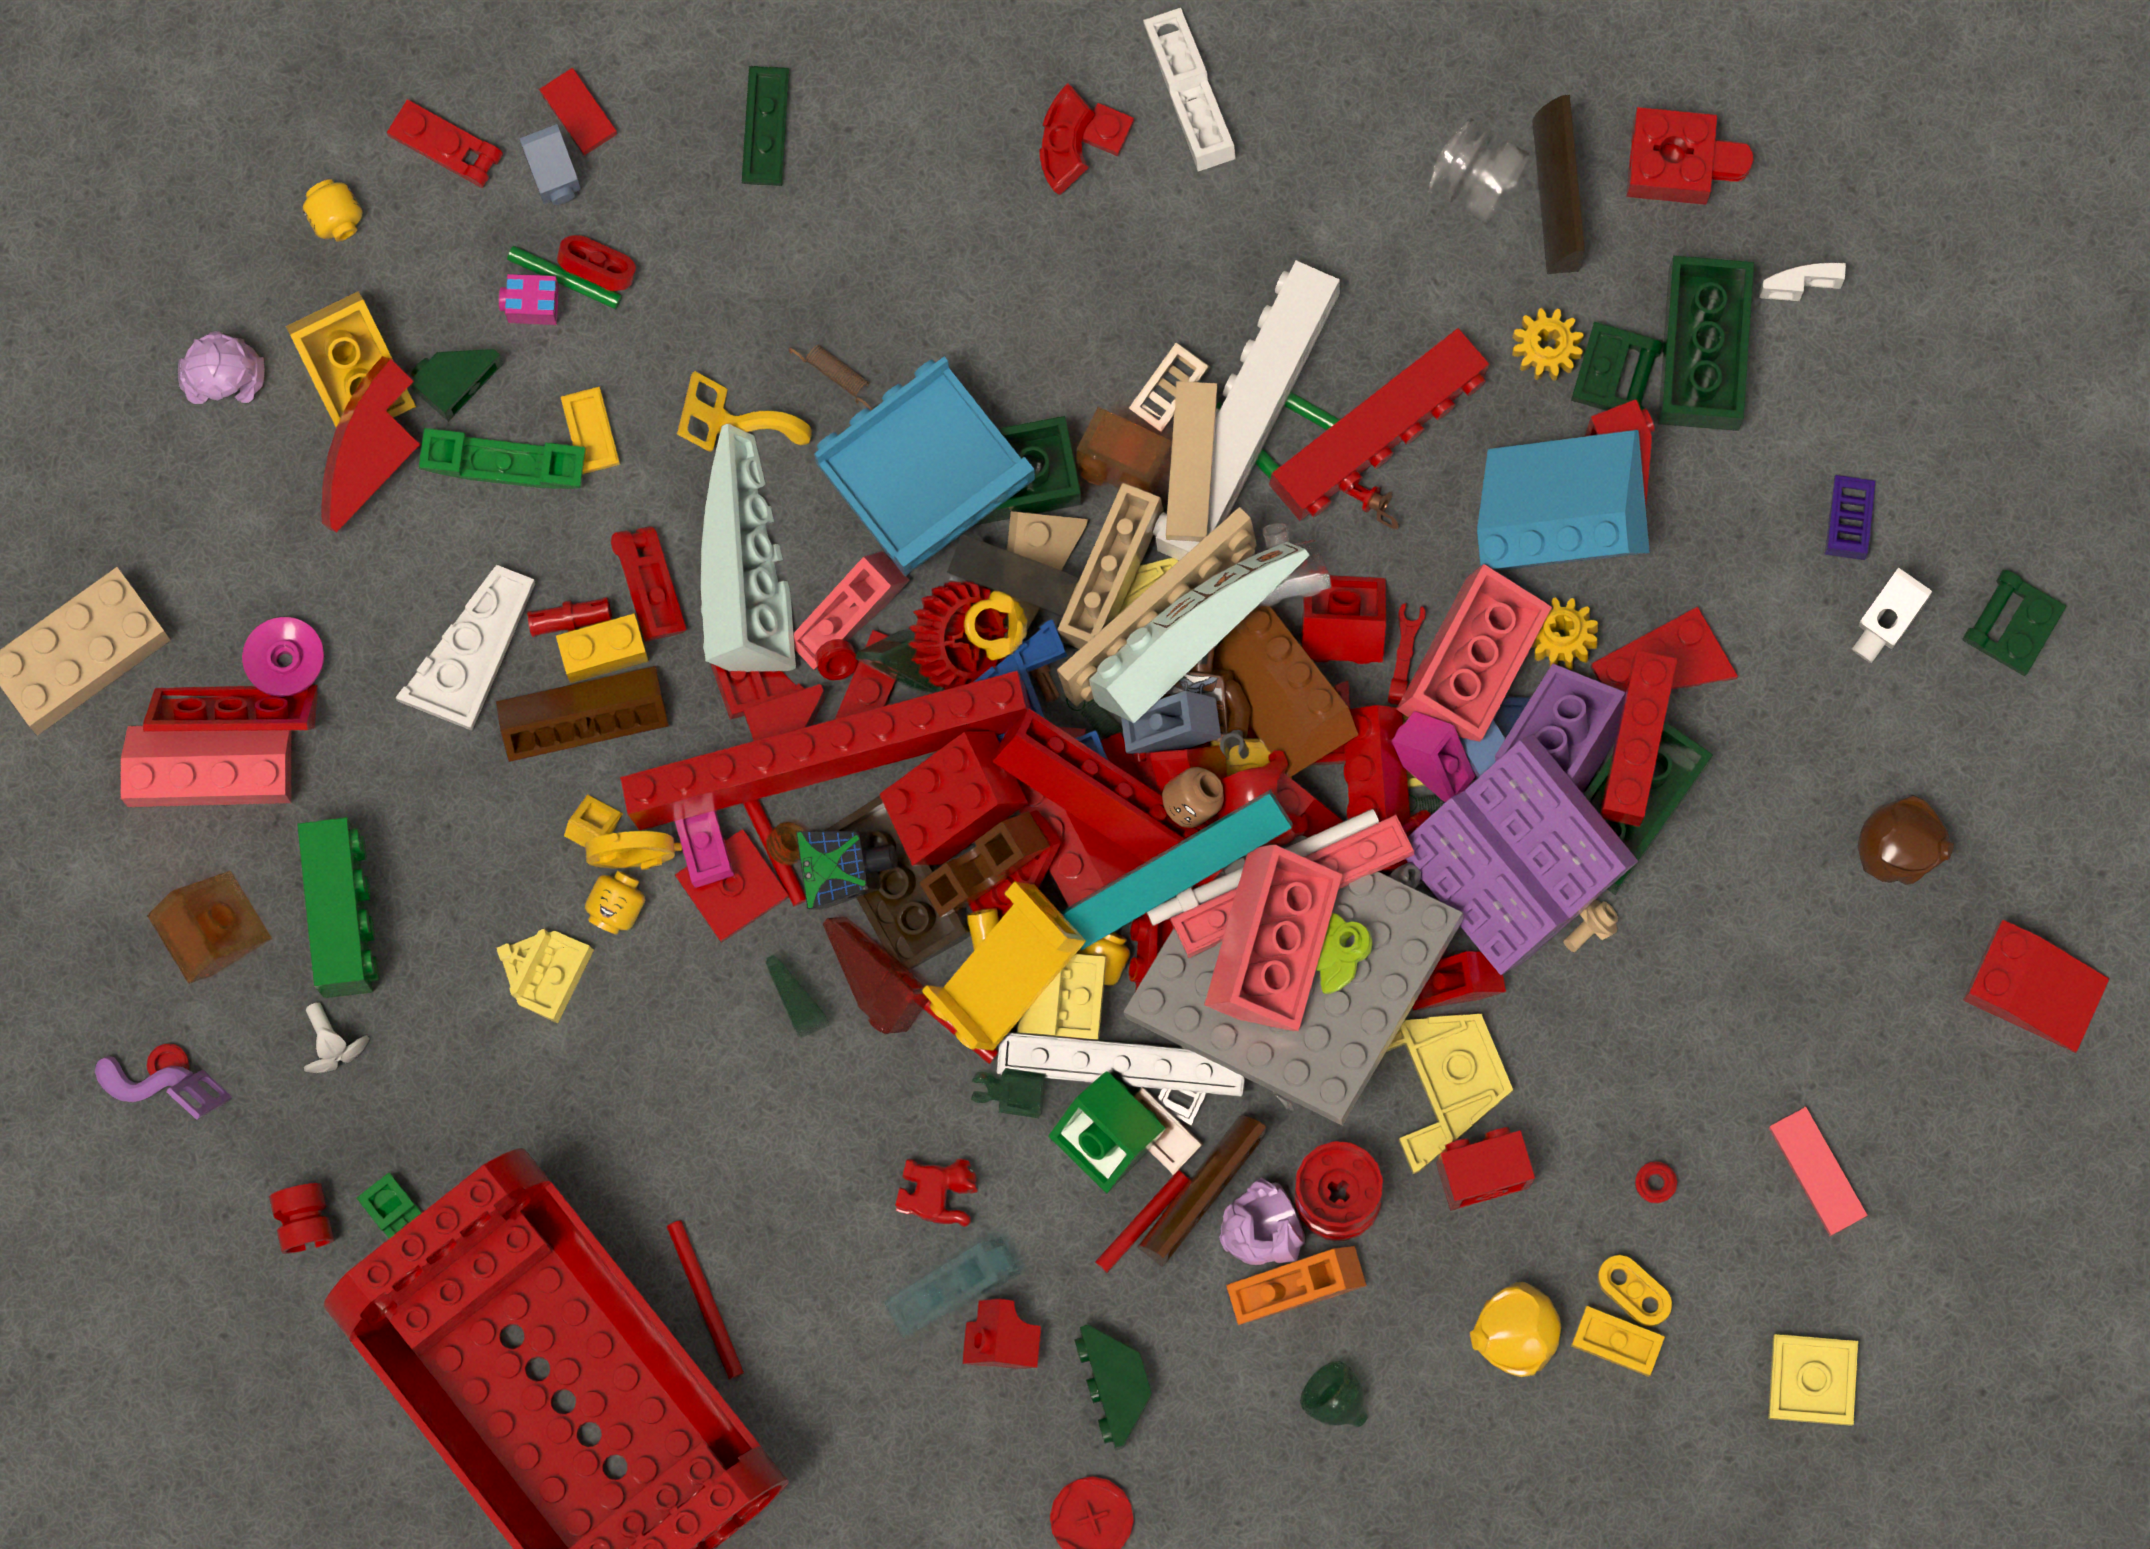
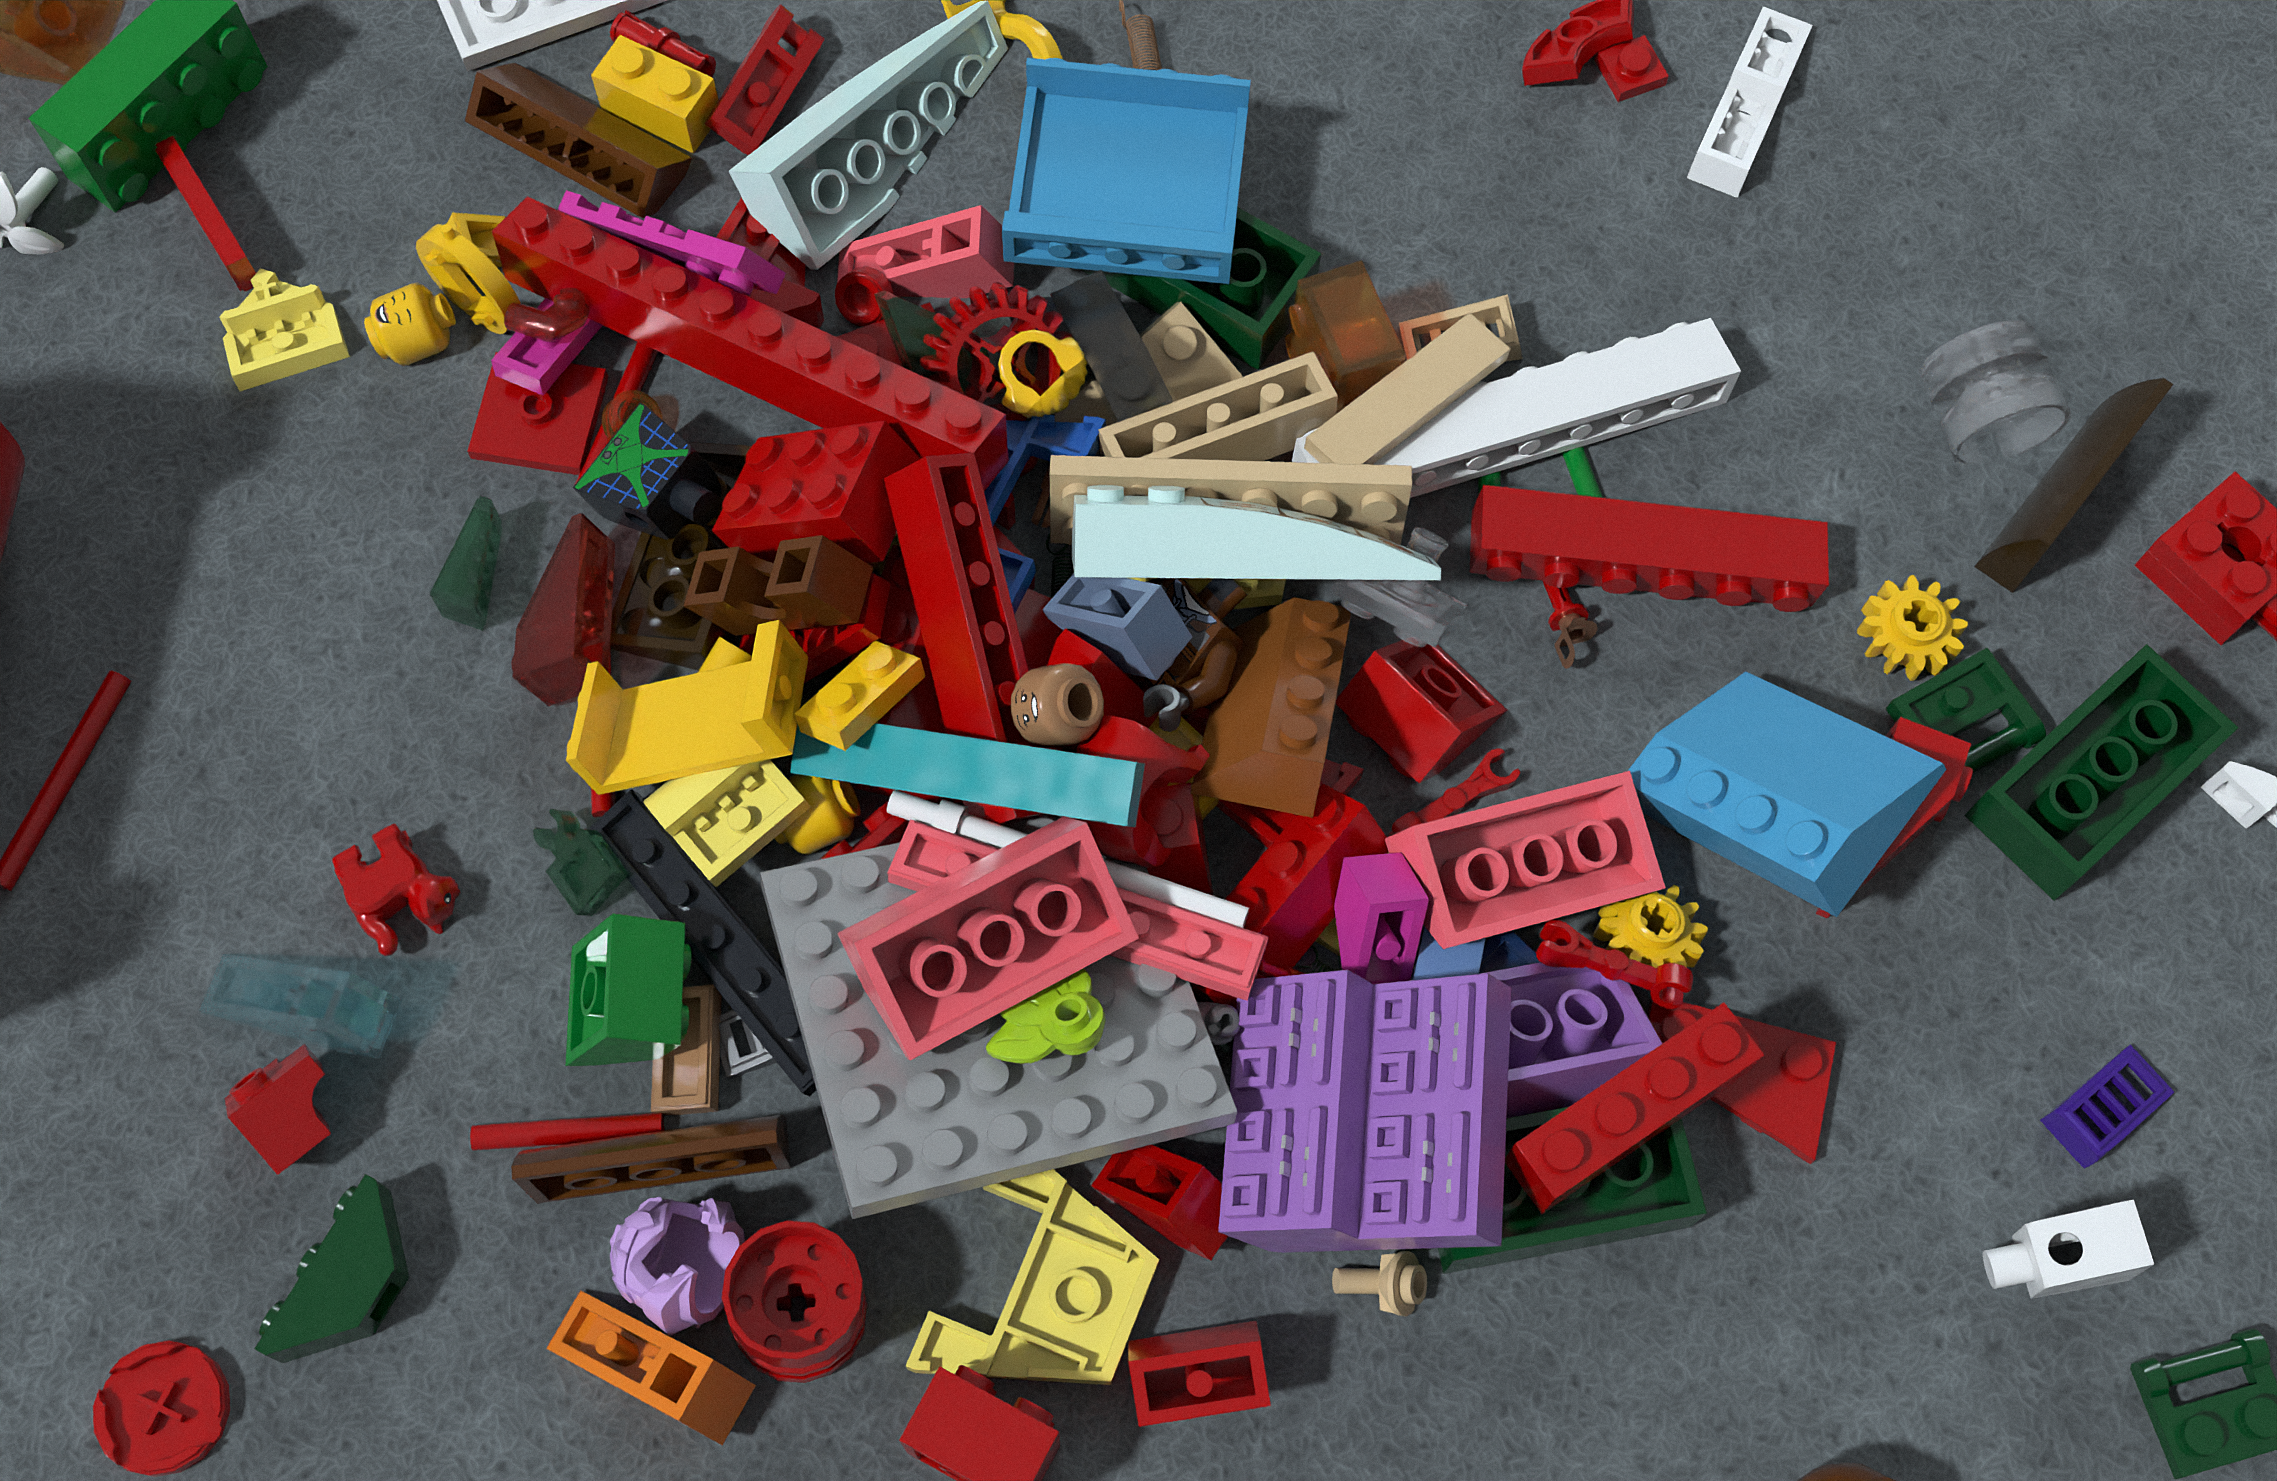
camera: 40 degrees right, 10 degrees down
(435, 946) = (206, 213): none -> red tile
(704, 830) = (553, 323): none -> clear red arm
(726, 734) = (703, 254): none -> dark pink wing
(1084, 880) = (860, 695): none -> yellow plate
(1550, 1047) = (1198, 1373): none -> red brick
(1594, 657) = (1574, 950): none -> red piece

